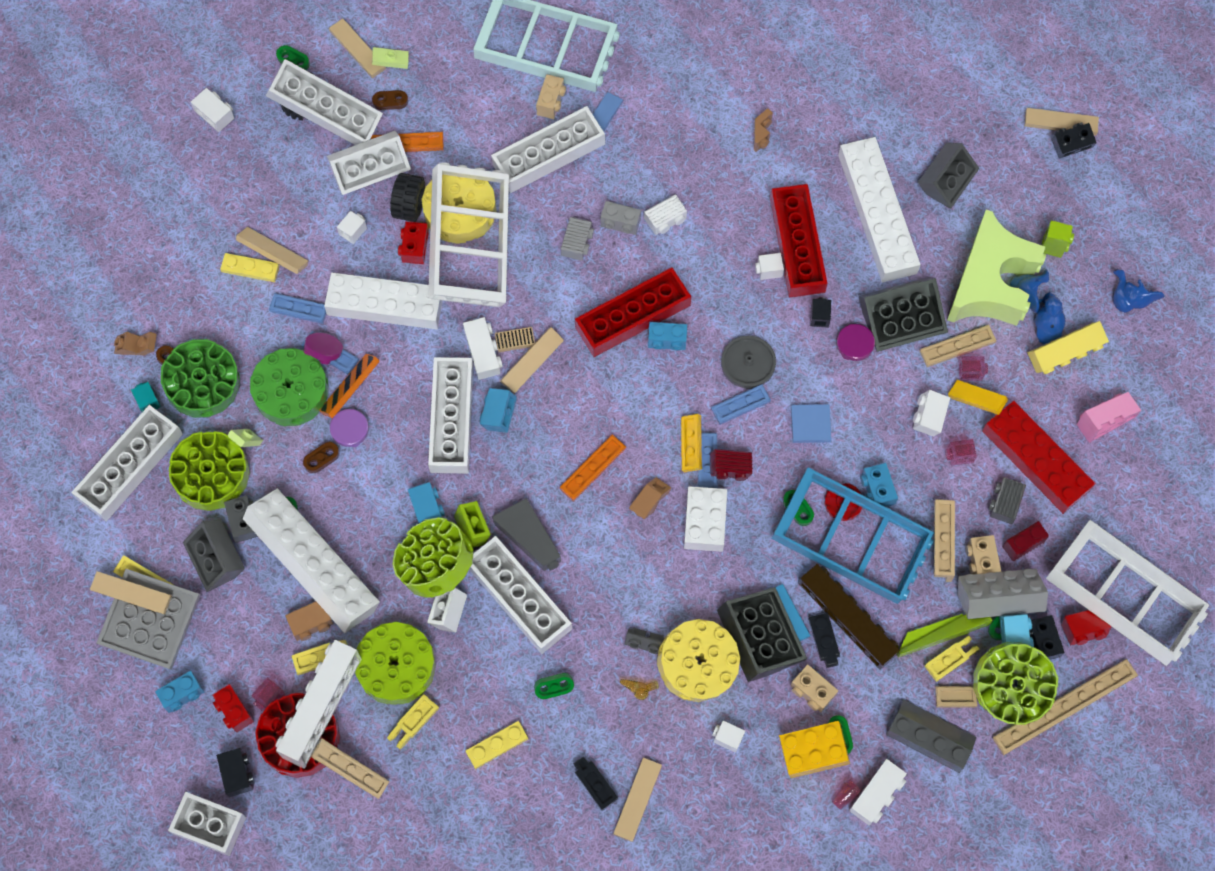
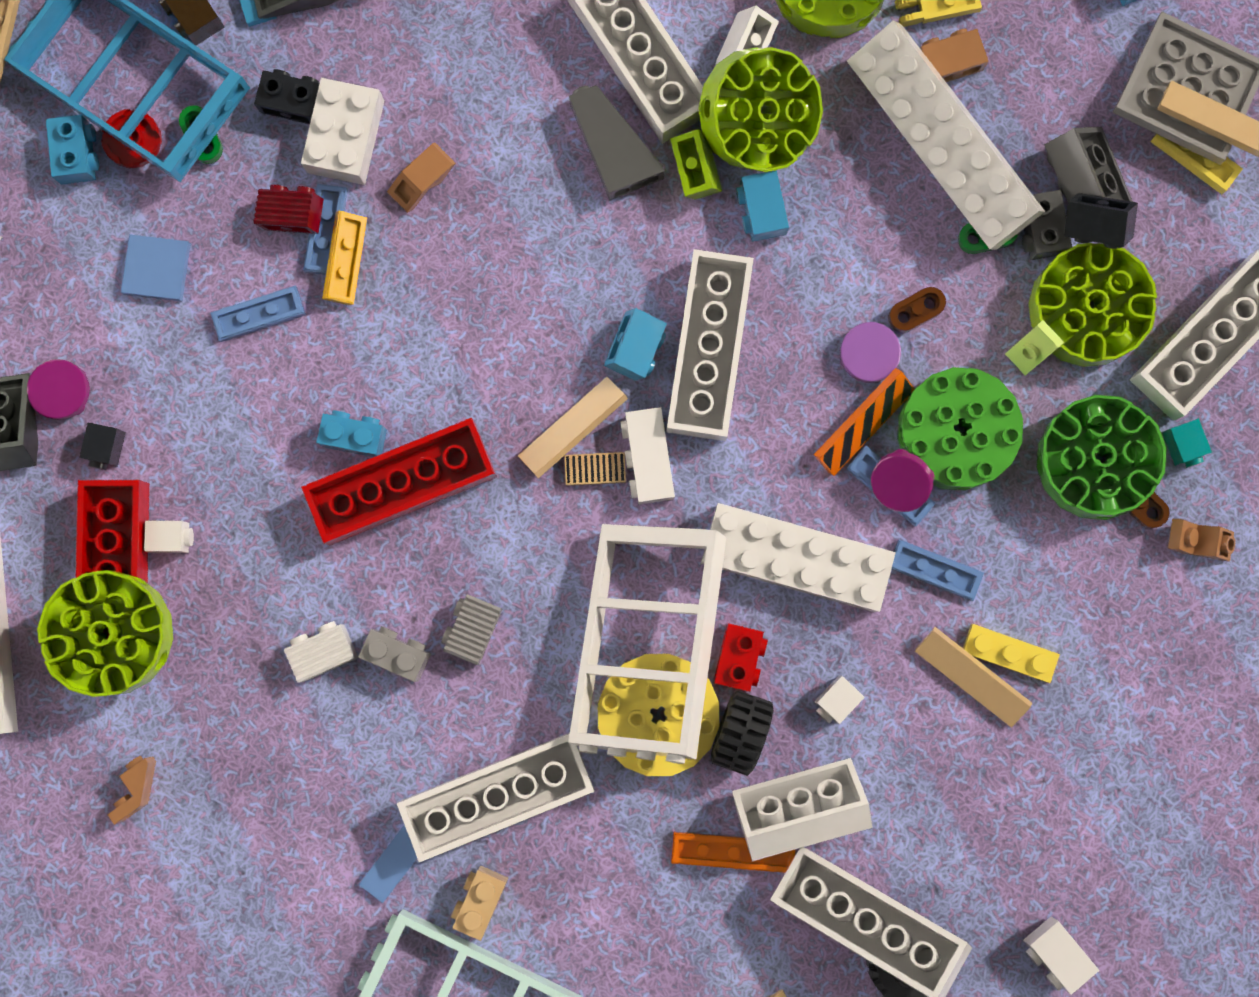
camera: 170 degrees left, 15 degrees up
(207, 512) = (1100, 220): none -> black brick
(390, 101) = (755, 938): reddish brown plate -> none
(592, 468) = (501, 241): orange tile -> none
(744, 537) = (286, 96): none -> black brick
(748, 362) = (233, 382): dark grey piece -> none
(789, 196) = (75, 640): none -> lime brick

